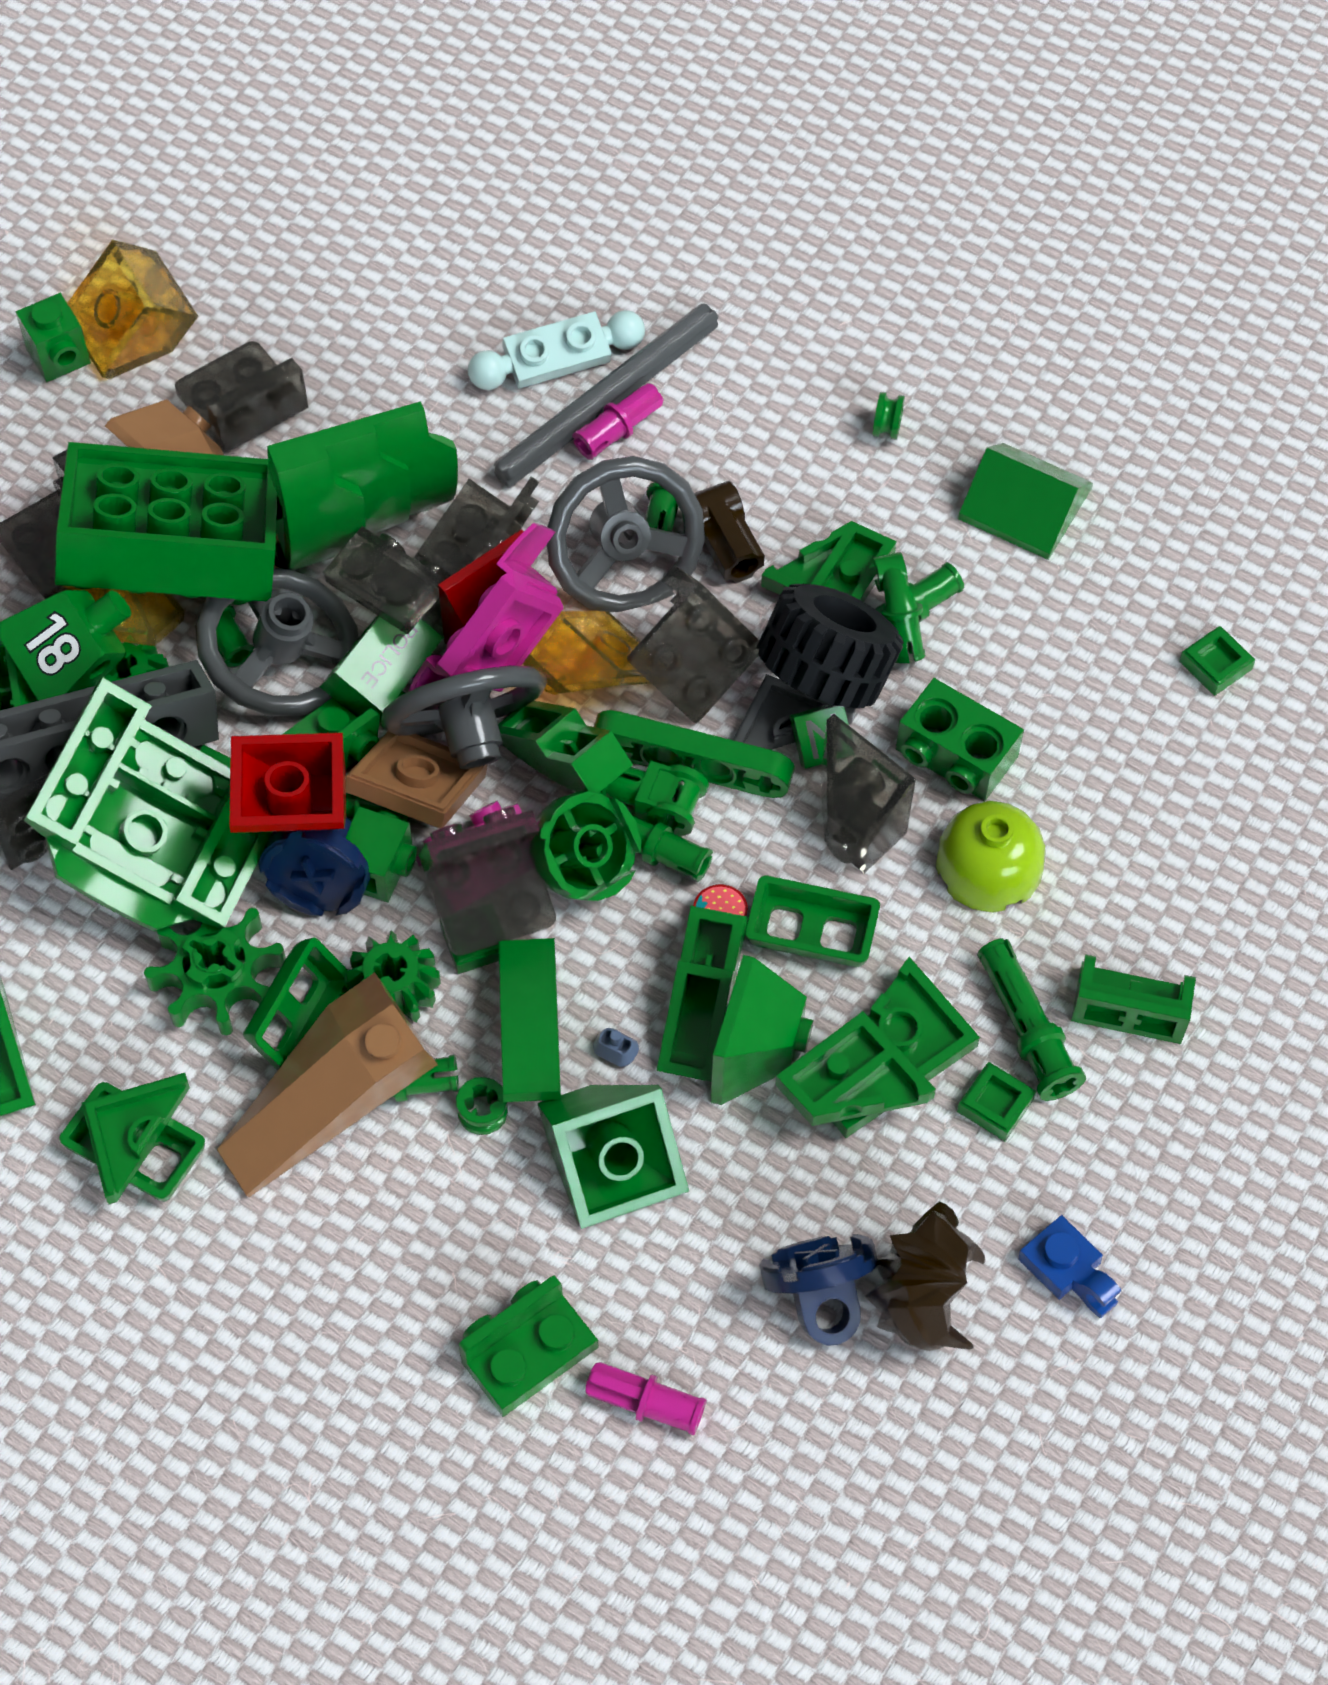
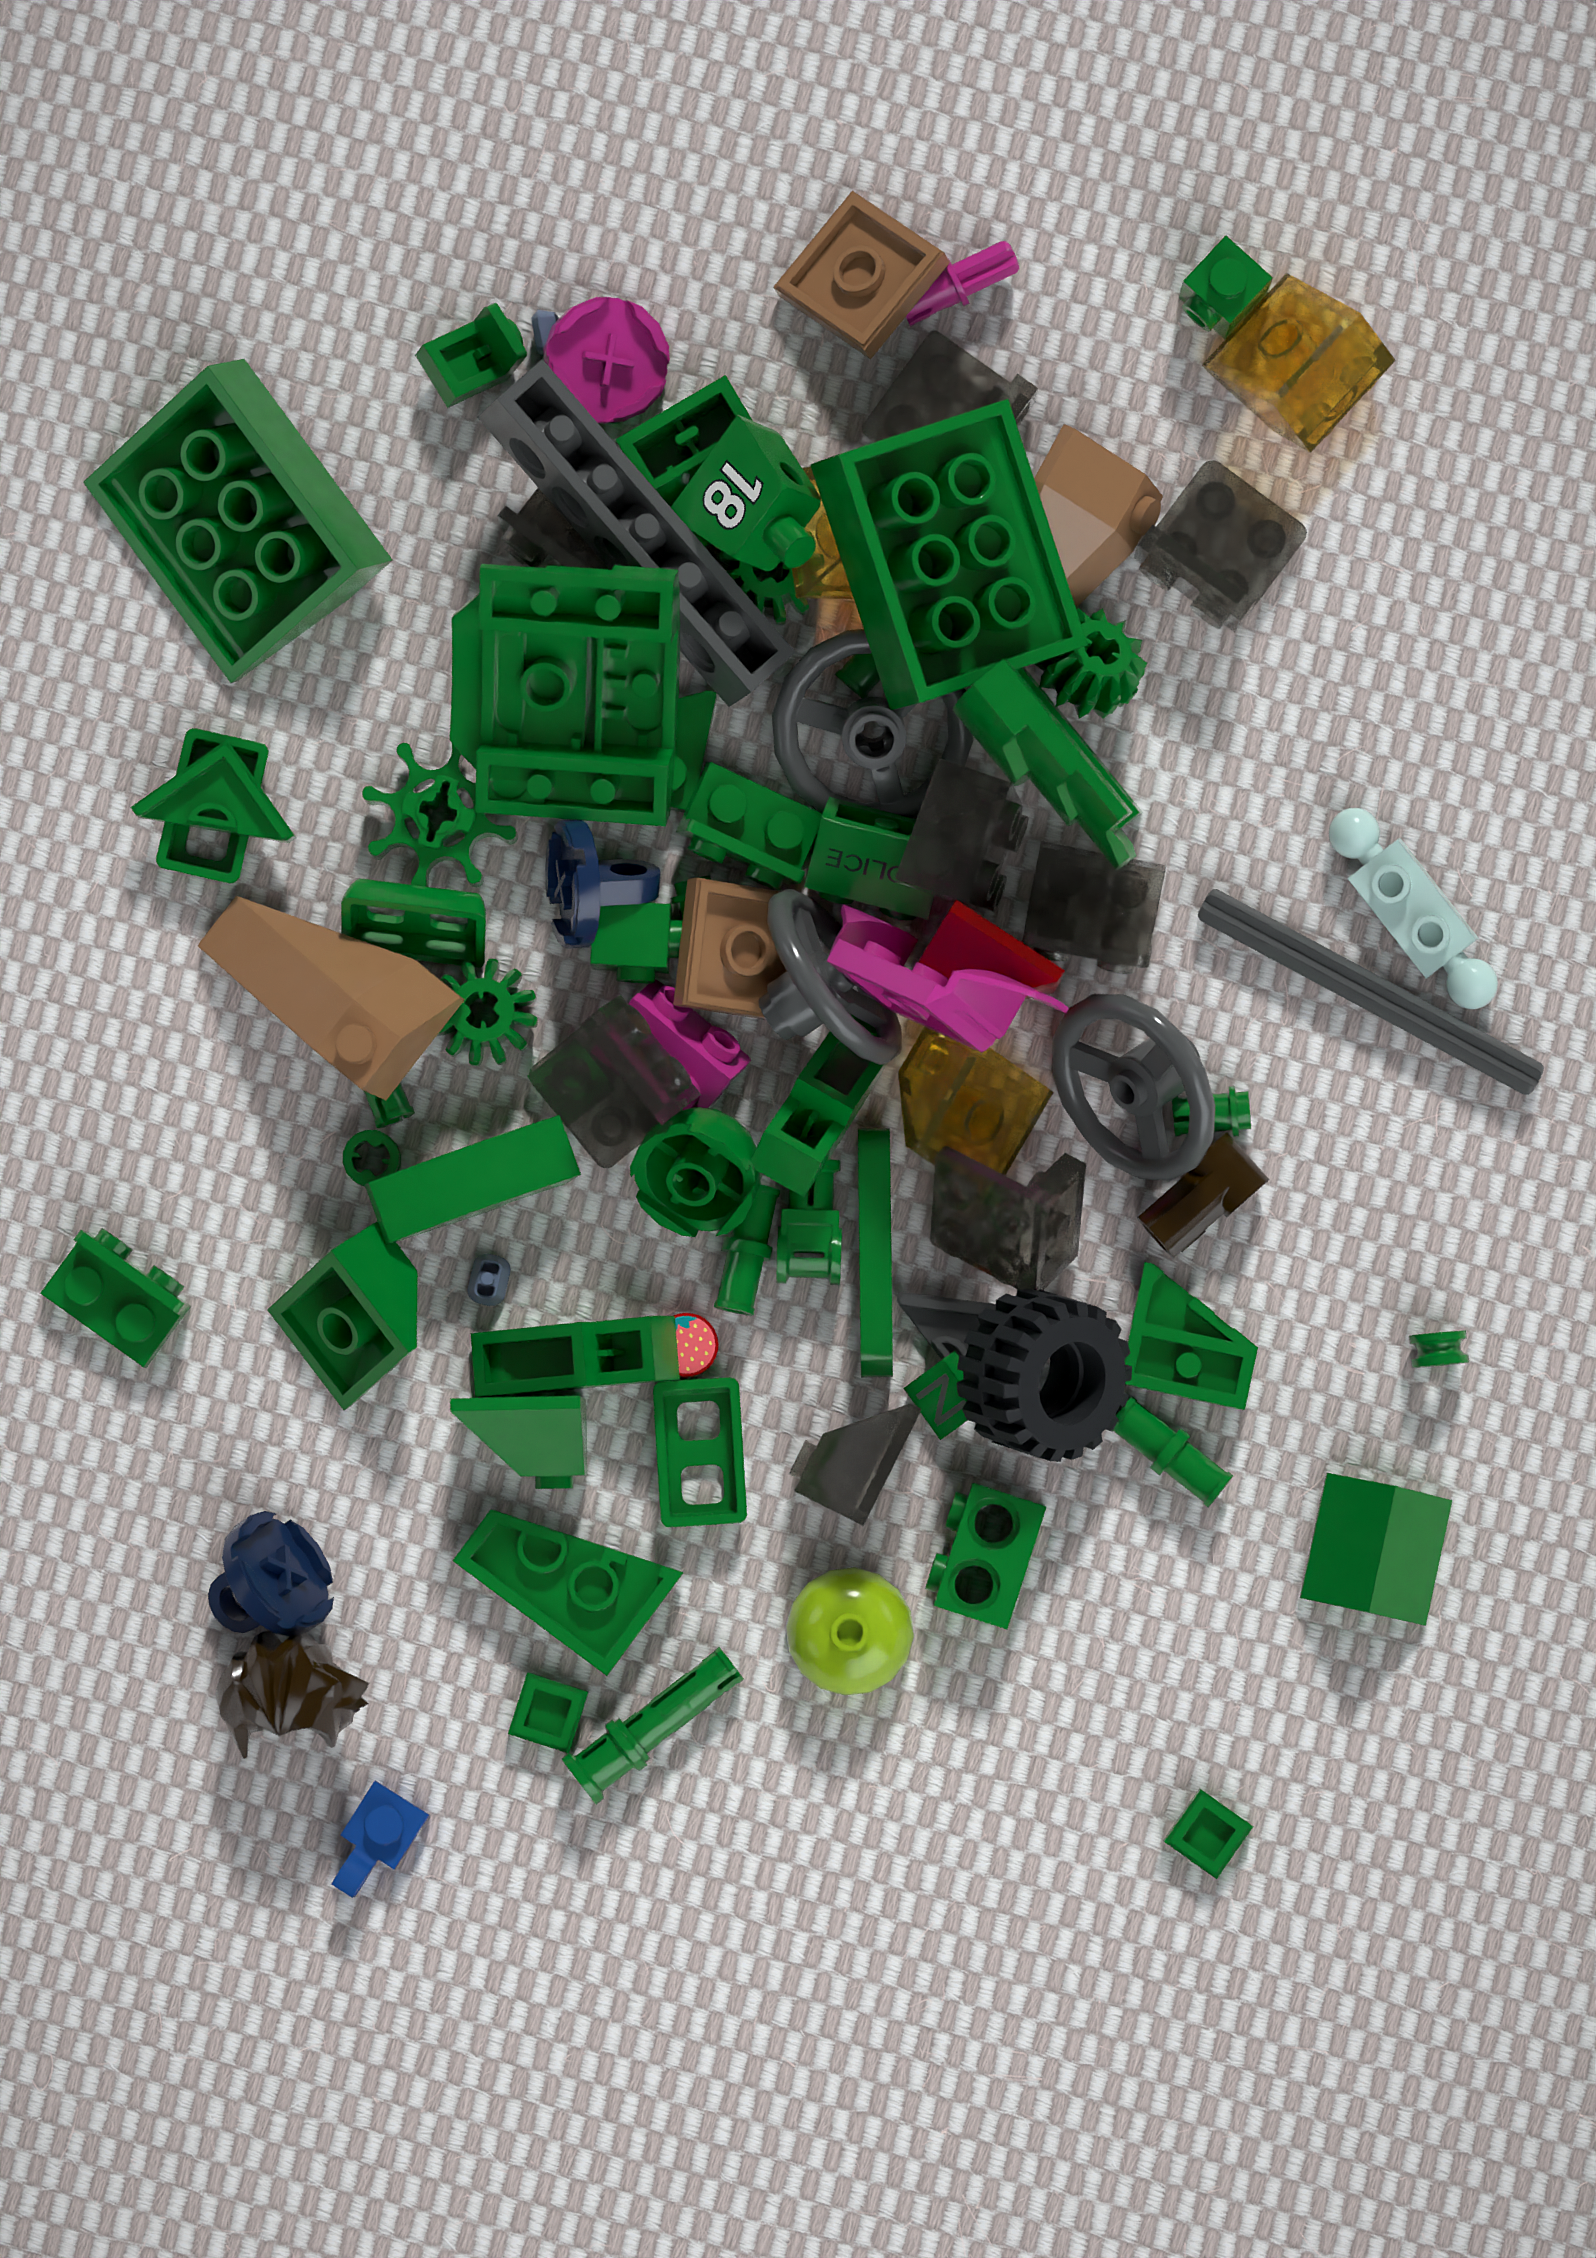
camera: 80 degrees right, 25 degrees up
(287, 782) = (626, 830): red slope -> none
(617, 421) = (1331, 1019): dark pink axle -> none
(645, 1397) = (98, 1434): dark pink axle -> none
(853, 1076) = (504, 1551): green wing -> none
(900, 604) = (1134, 1443): green piece -> none
(1133, 1003) = (716, 1834): green hinge -> none

